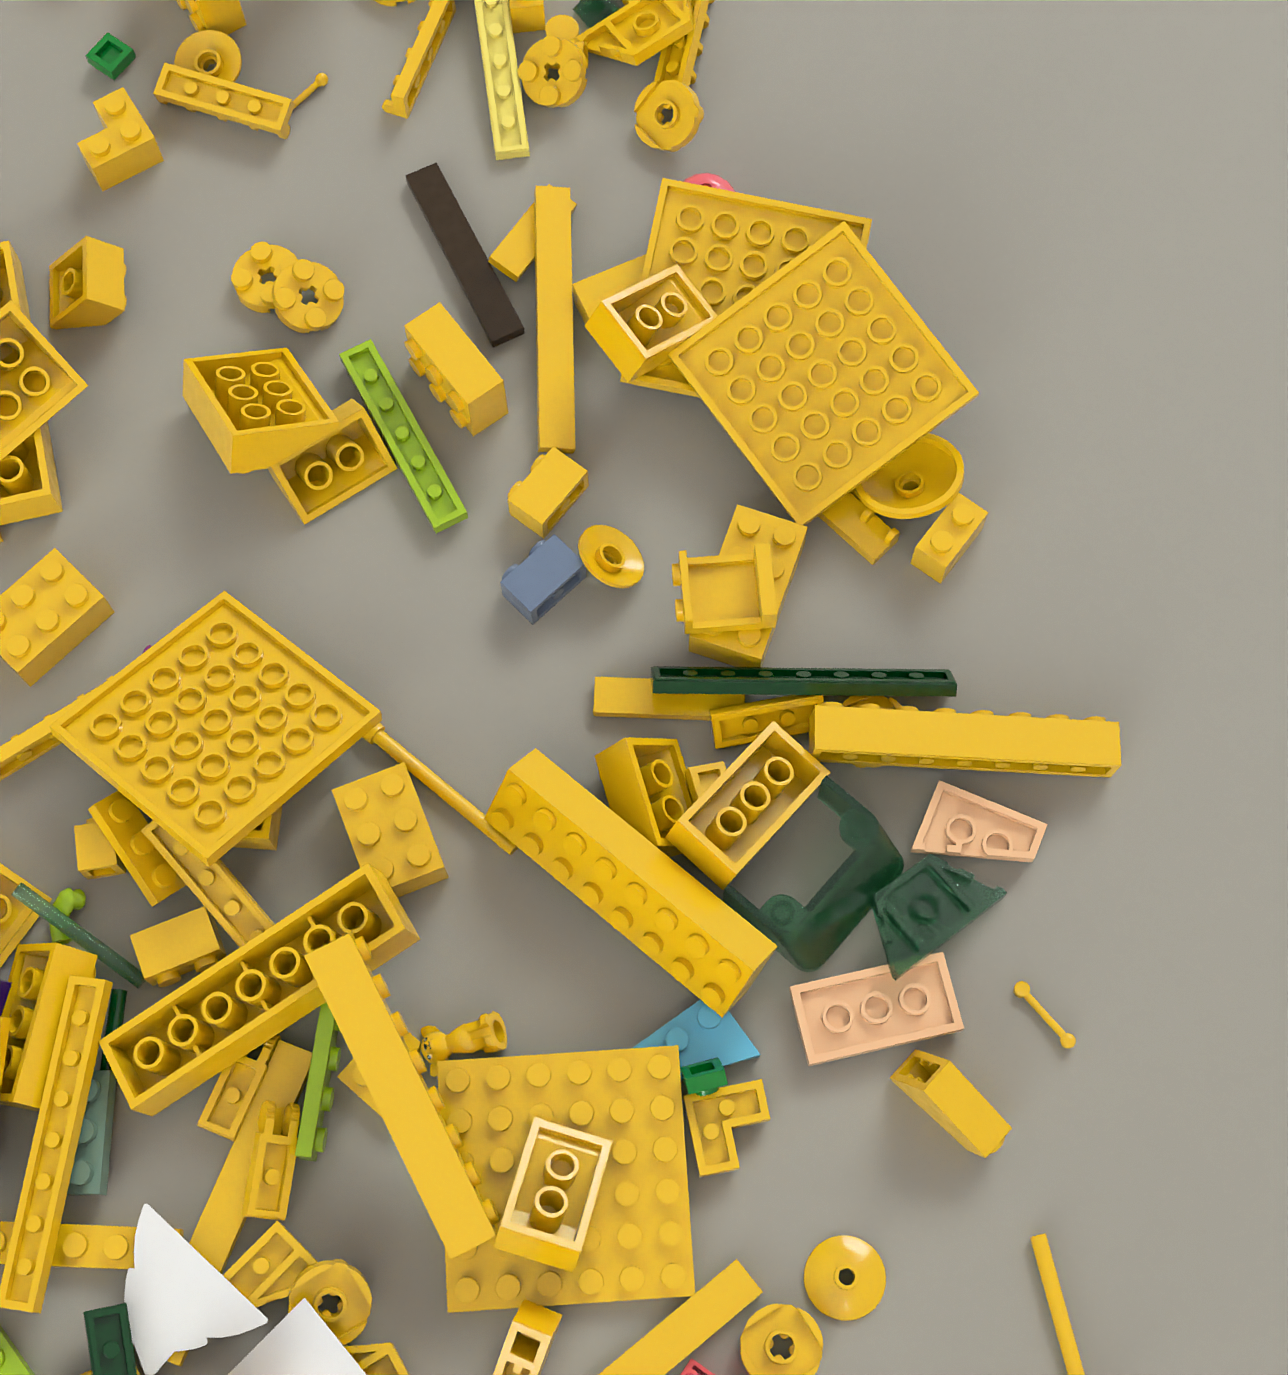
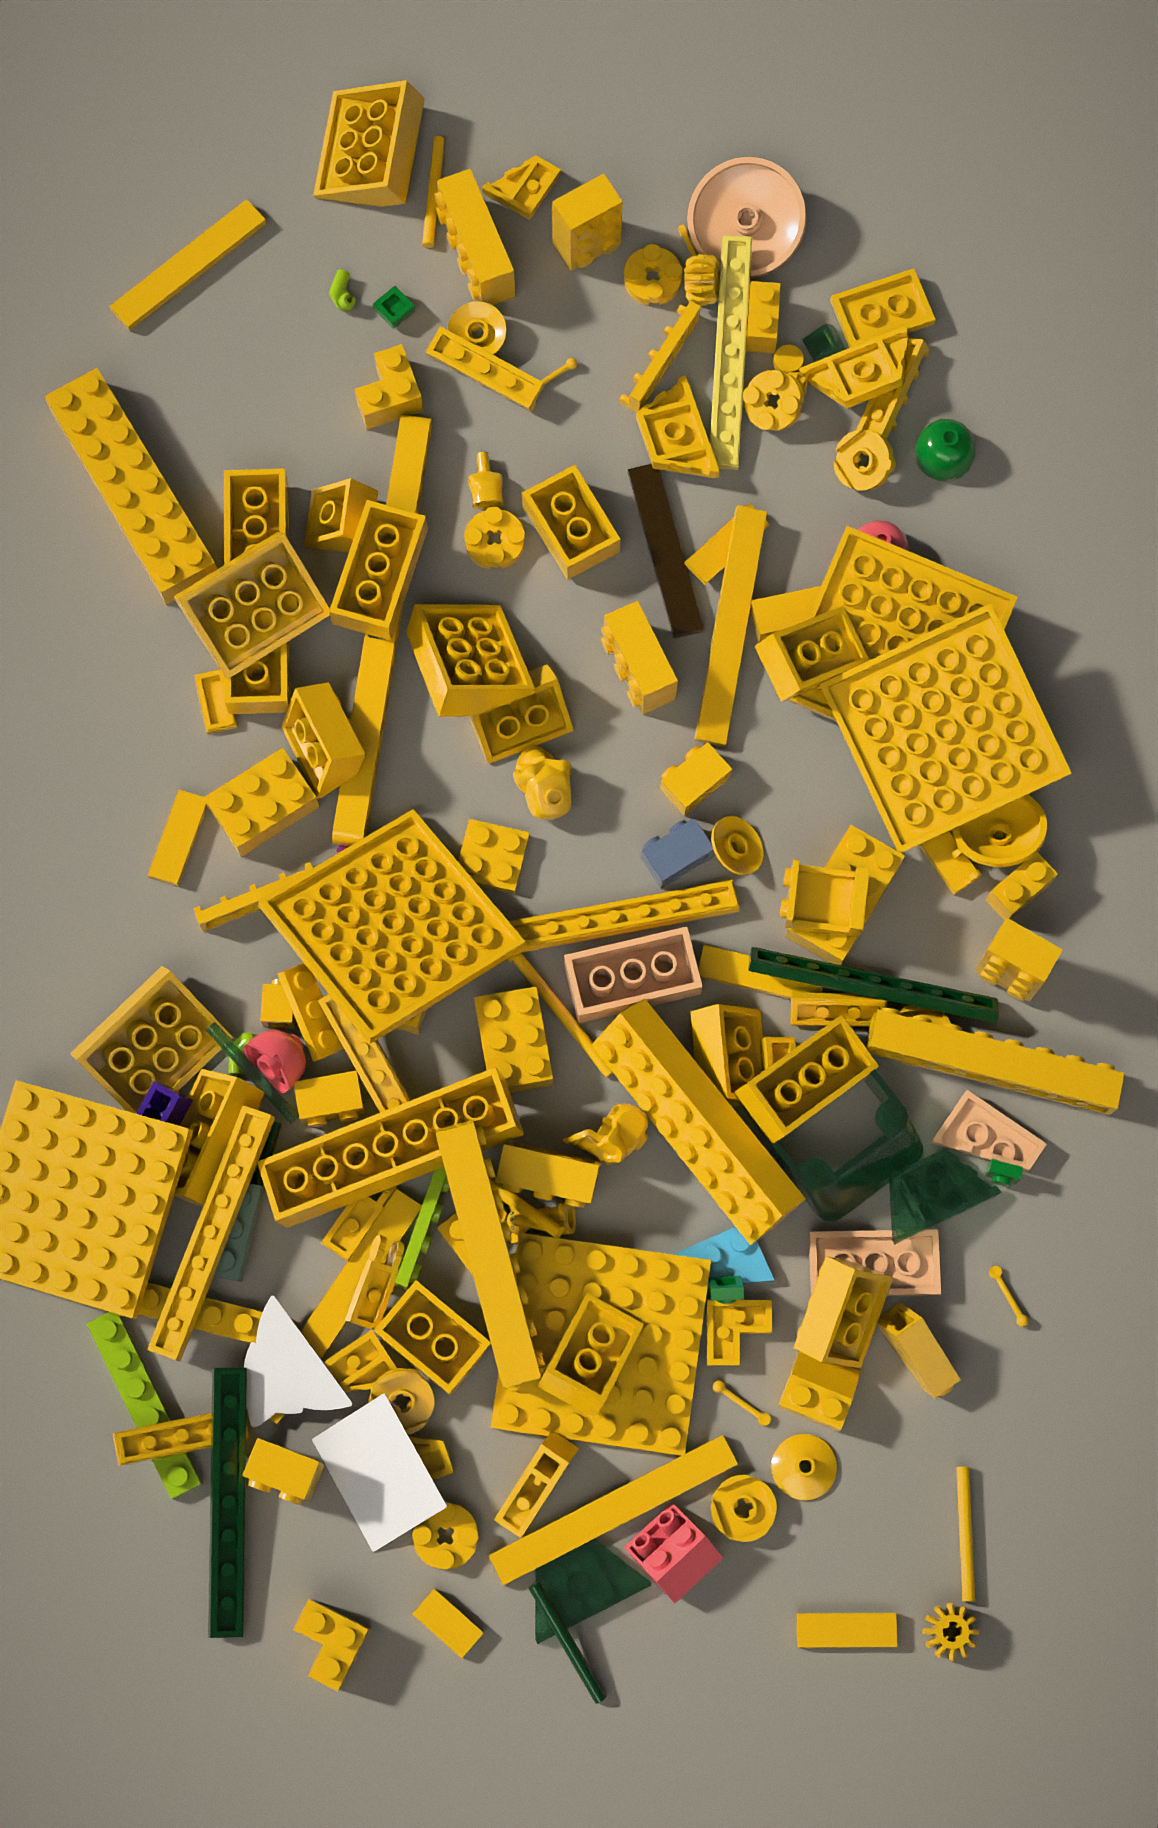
camera: 10 degrees right, 5 degrees up
(46, 51) = (338, 291): none -> lime arm
(100, 528) = (322, 738): none -> yellow slope
(107, 910) = (277, 1057): none -> coral cylinder
(134, 328) = (378, 570): none -> yellow brick
(154, 405) = (378, 653): none -> yellow beam
(247, 222) = (485, 485): none -> yellow piece
(307, 276) = (526, 582): yellow plate -> none
(329, 624) = (493, 855): none -> yellow plate
(350, 240) = (571, 522): none -> yellow brick
(354, 1214) = (433, 1338): none -> yellow brick
(373, 531) = (544, 783): none -> yellow head
(403, 436) = (584, 704): lime plate -> none
(441, 1031) = (528, 1210): none -> yellow bar
(453, 128) = (676, 433): none -> yellow wing
(459, 981) = (548, 1173): none -> yellow brick
(497, 662) = (627, 915): none -> yellow tile
(501, 727) = (625, 972): none -> light nougat brick
(535, 921) = (617, 1137): none -> yellow head
(755, 90) = (945, 449): none -> green cylinder
(782, 1228) = (762, 1418): none -> yellow hinge
(843, 1177) = (819, 1391): none -> yellow slope
(851, 1076) = (843, 1313): none -> yellow slope
(966, 616) = (1018, 961): none -> yellow brick
(1004, 868) = (1003, 1173): none -> green plate

